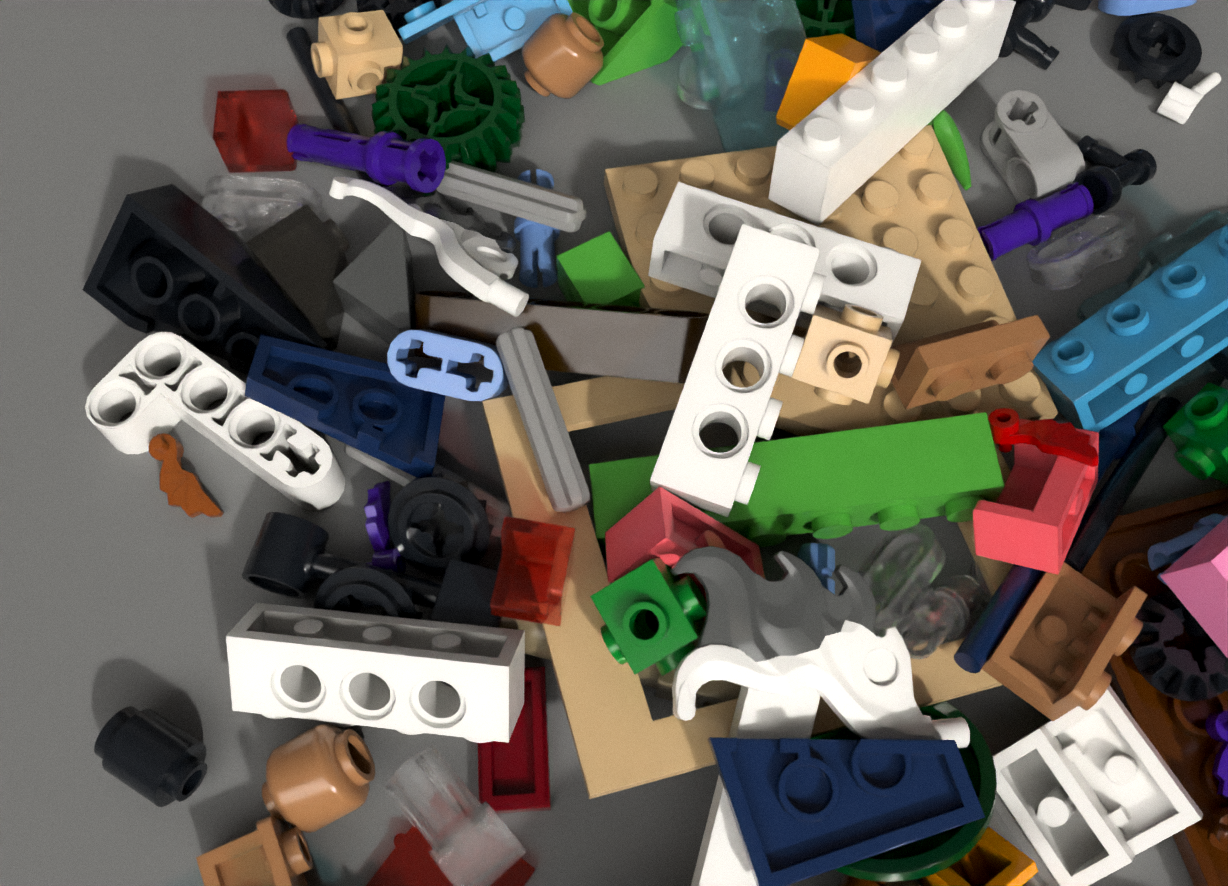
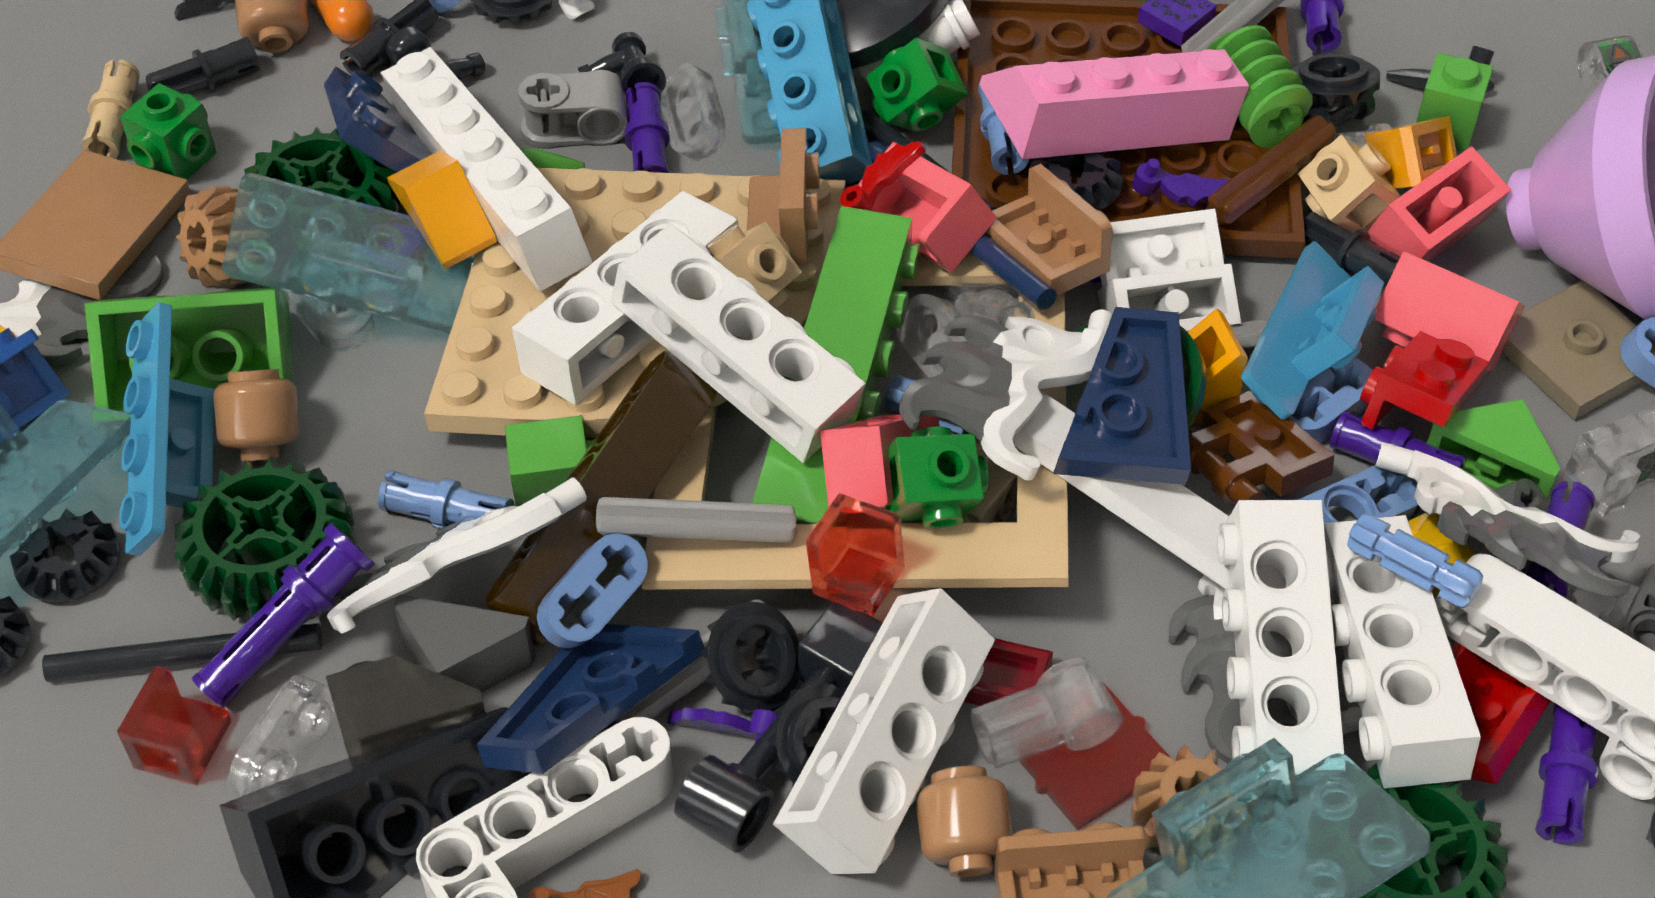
camera: 70 degrees left, 15 degrees down
(356, 52) = (137, 593): tan brick -> none
(513, 196) = (419, 492): light grey axle -> none

